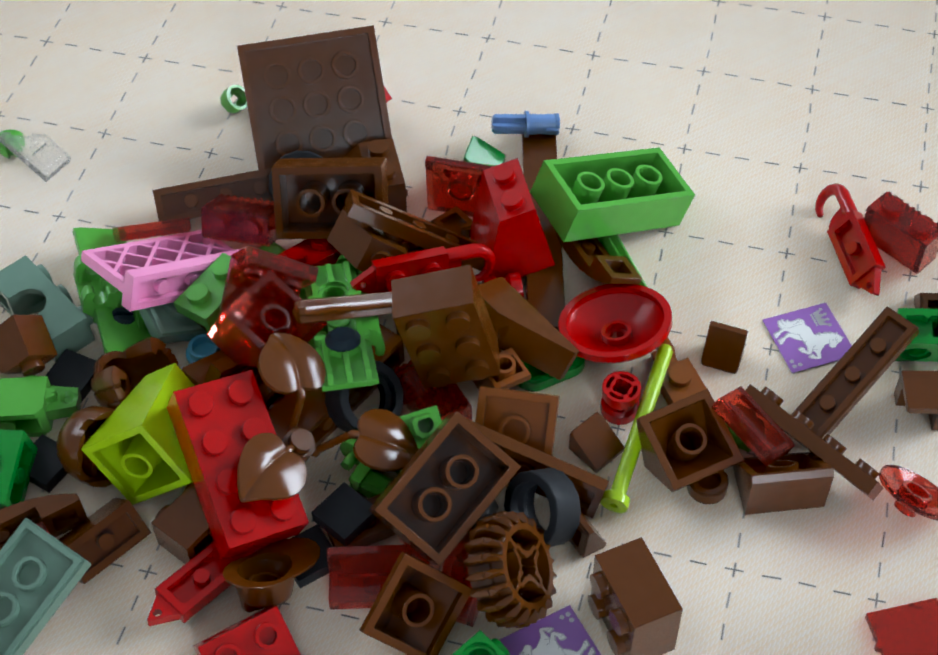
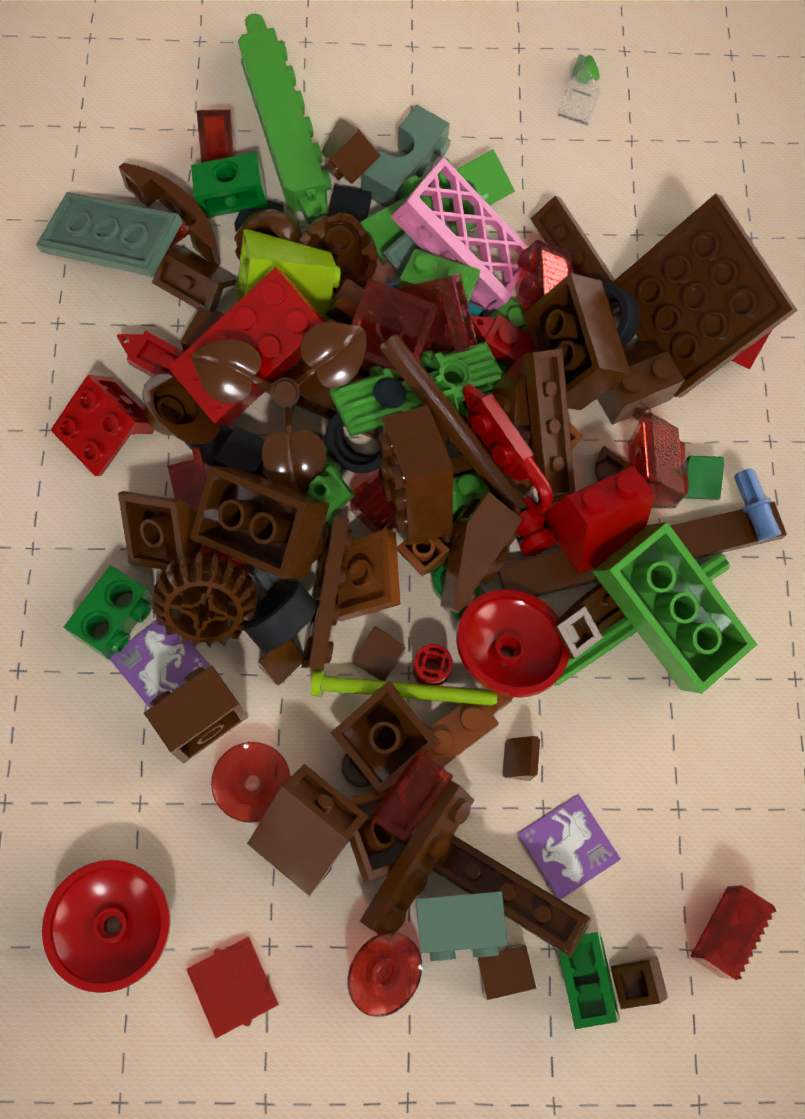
camera: 70 degrees right, 20 degrees up
(152, 229) = (512, 210): clear red tile -> none
(715, 561) = (233, 771): none -> clear red dish
(778, 516) = (306, 829): none -> reddish brown panel
(852, 240) = (705, 877): red plate -> none
(880, 412) = (461, 924): none -> sand green brick

